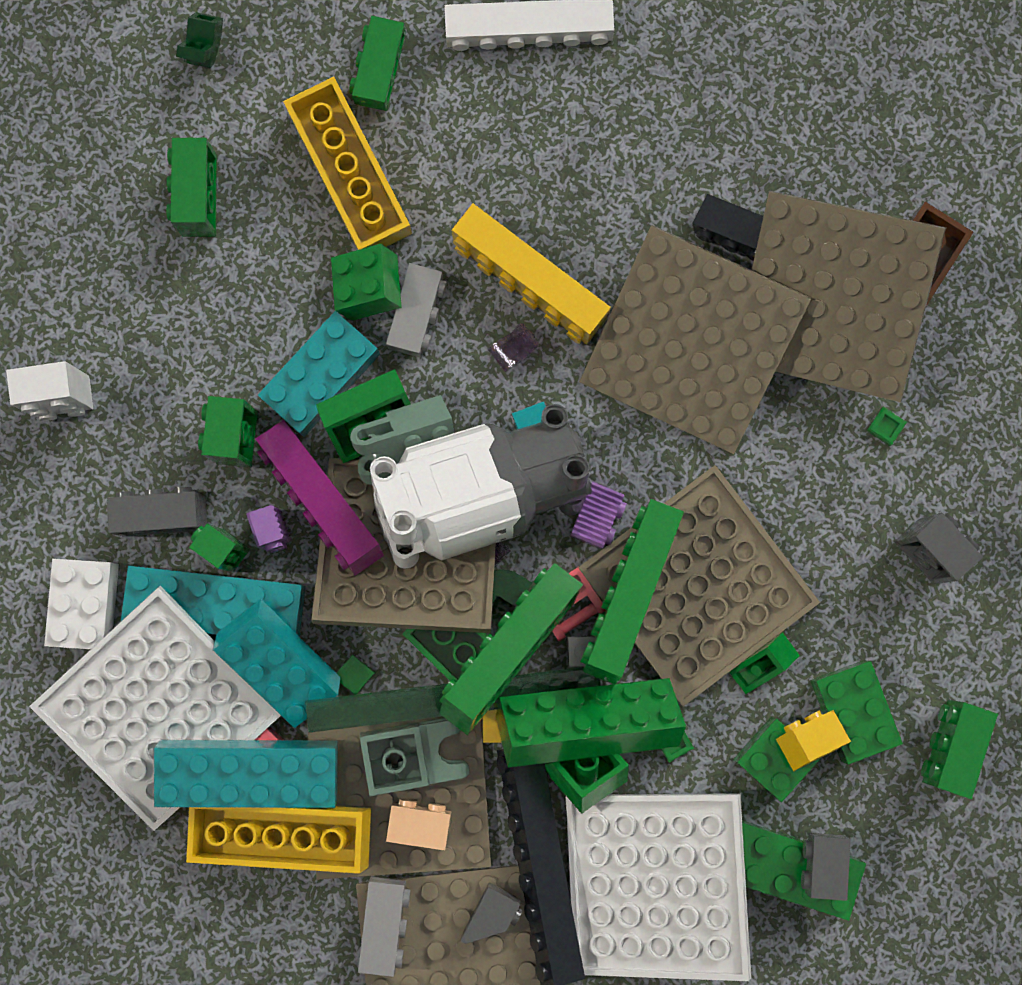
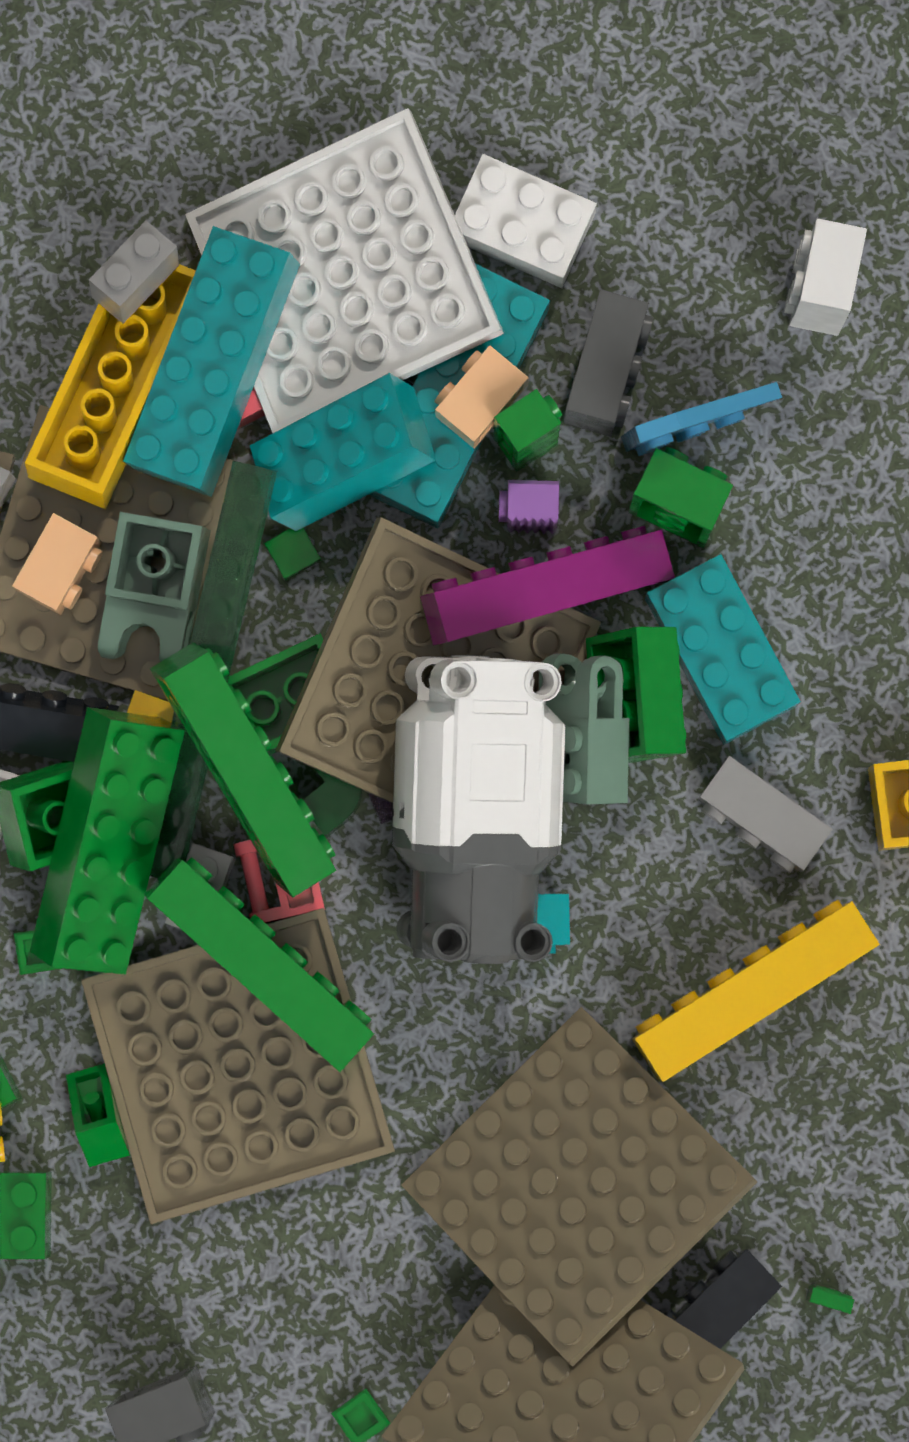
camera: 115 degrees right, 0 degrees up
(176, 441) = (695, 420): none -> dark azure wing
(203, 848) = (134, 272): none -> light grey brick
(207, 585) = (481, 394): none -> light nougat brick
(366, 282) = (826, 759): green brick -> none
(514, 347) = (662, 932): bracket -> none
(598, 515) = (384, 962): medium lavender brick -> none
(701, 164) = (830, 1298): none -> green tile

